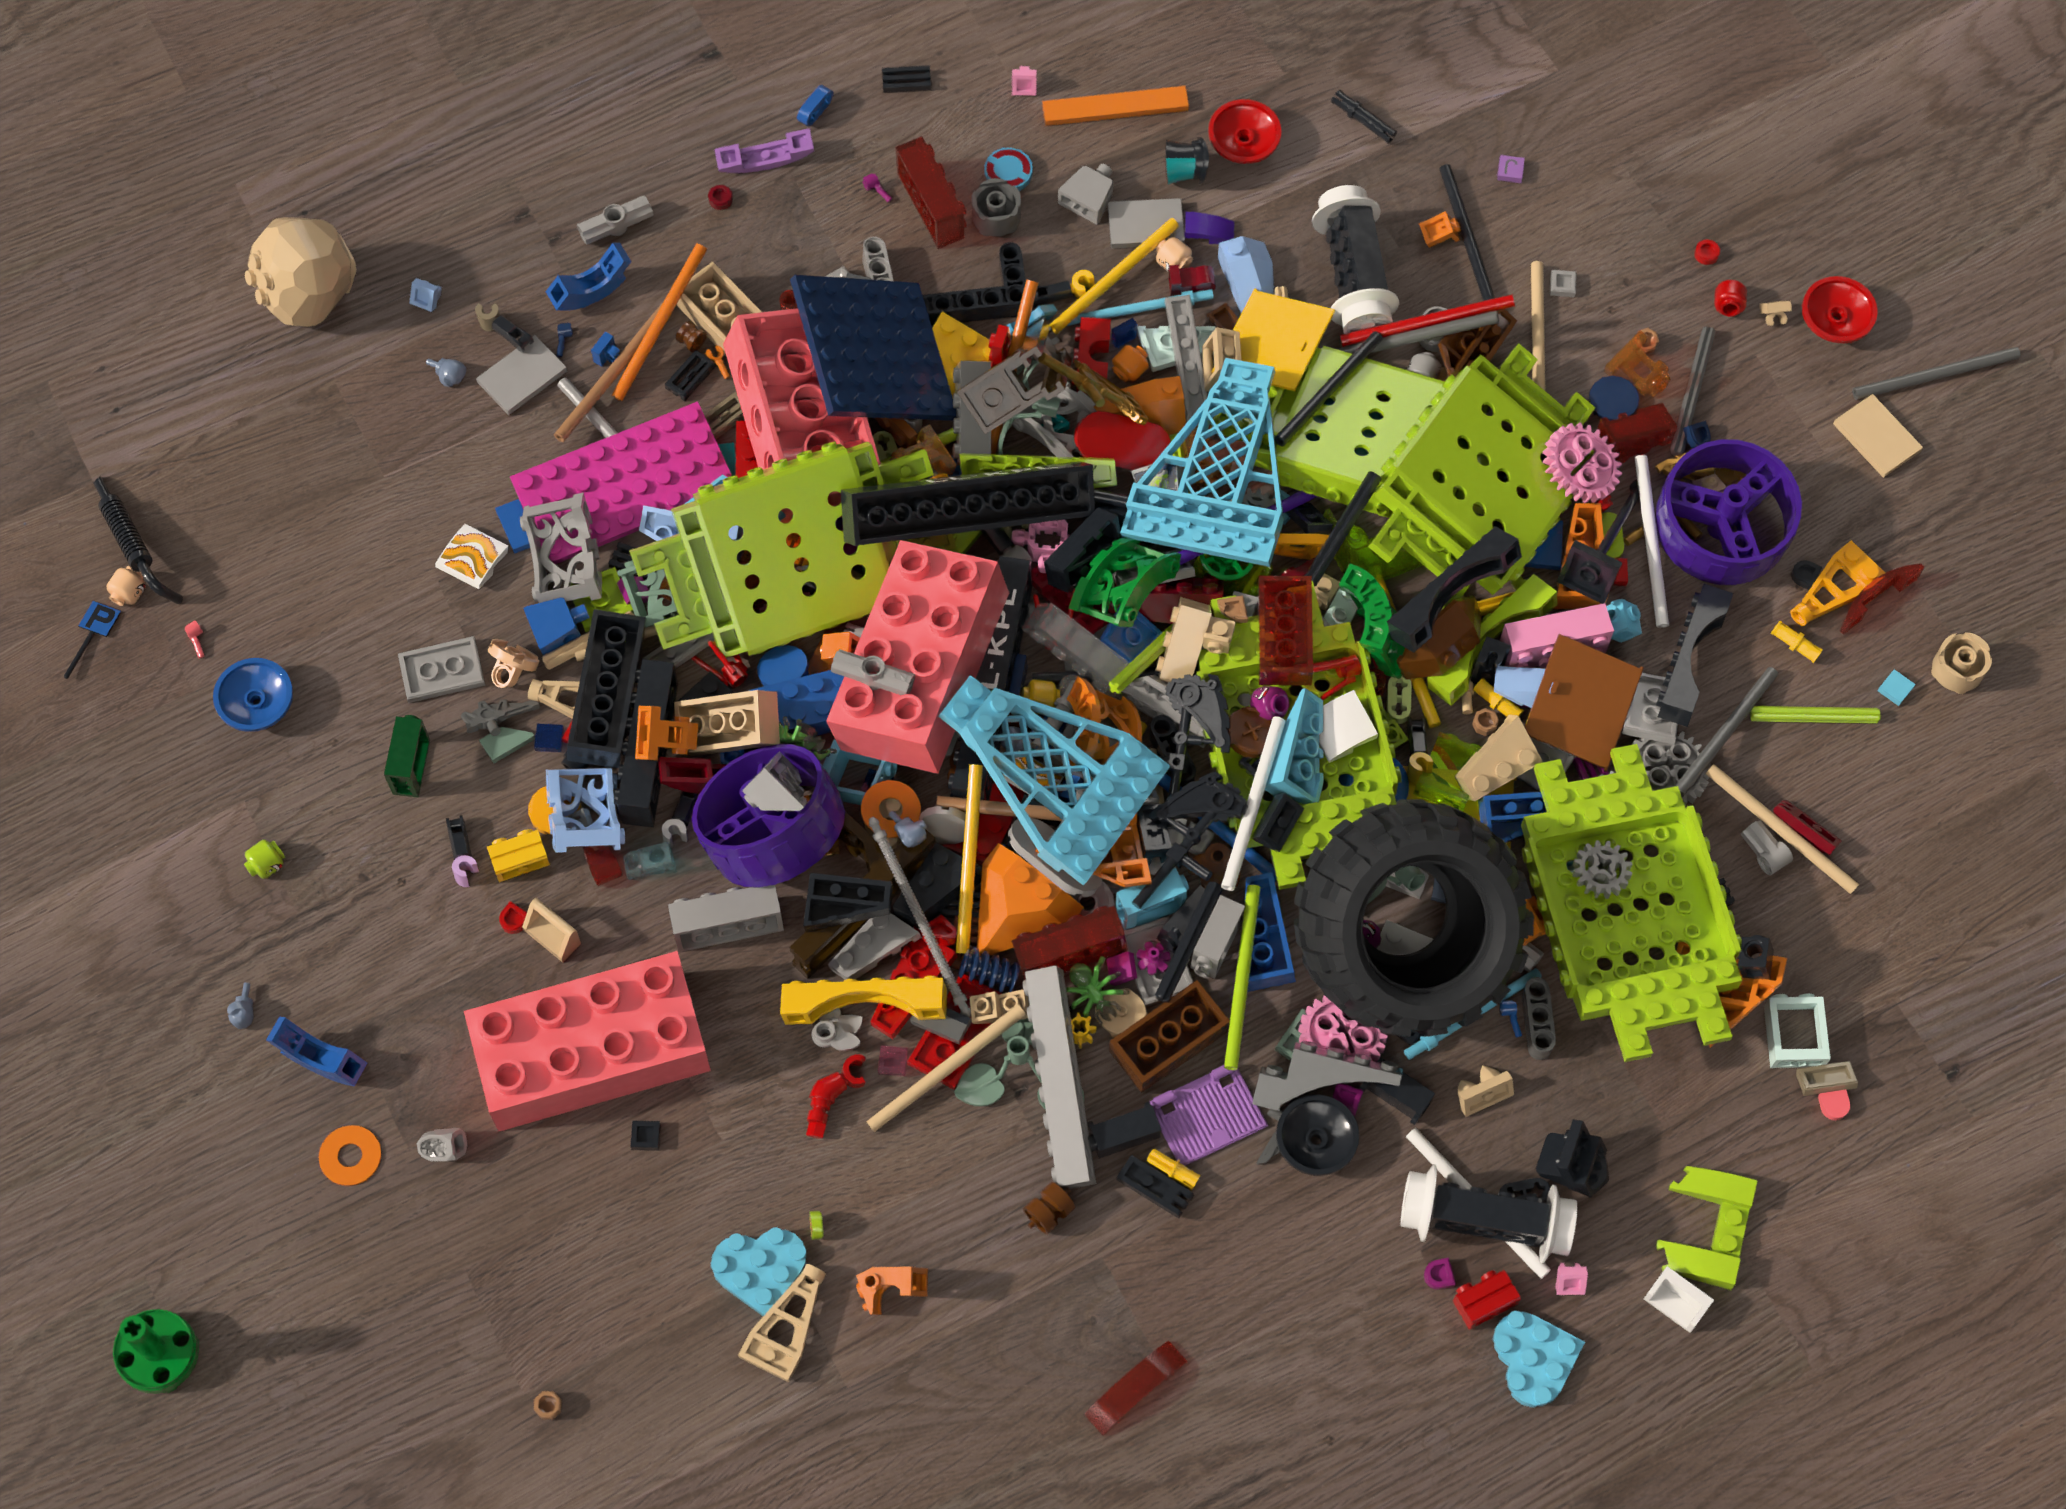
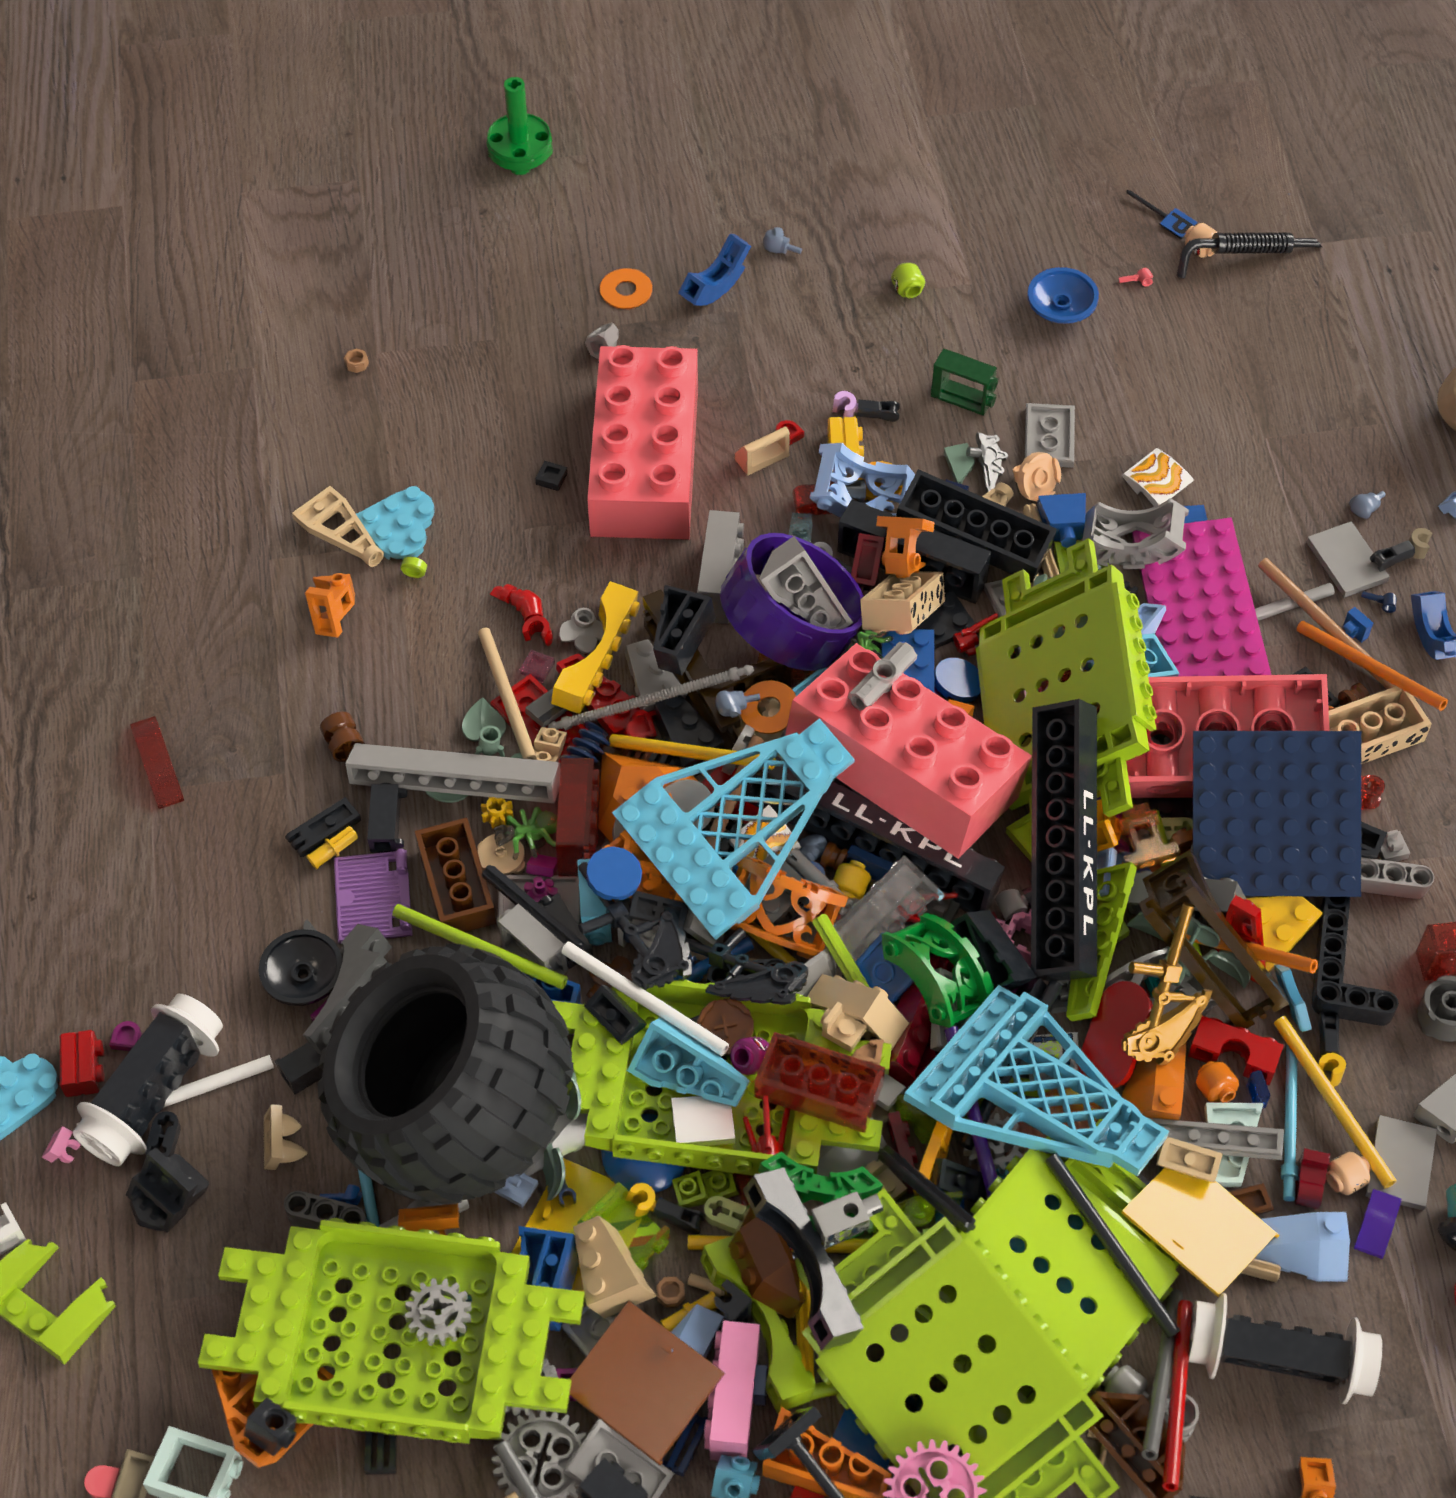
camera: 110 degrees right, 10 degrees down
(1146, 862) = (613, 873): none -> blue tile
(1415, 560) = (835, 1226): none -> light grey torso

